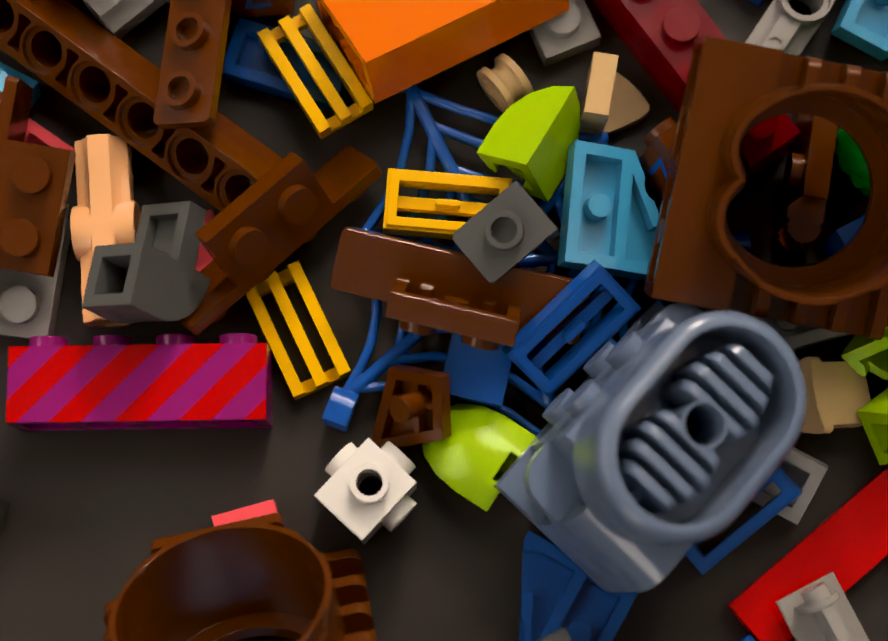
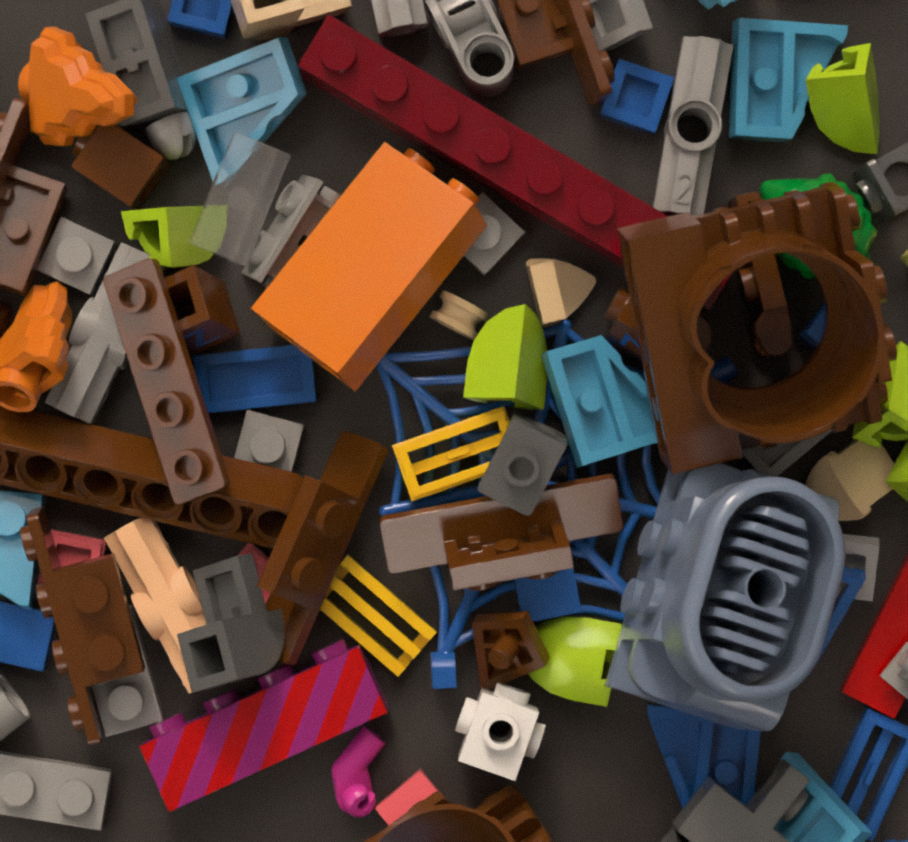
camera: 20 degrees left, 10 degrees up
(205, 472) = (351, 773): none -> dark pink arm
(275, 123) = (269, 441): none -> light grey plate
(290, 29) = (244, 351): yellow tile -> none
(555, 312) = (605, 520): blue tile -> none

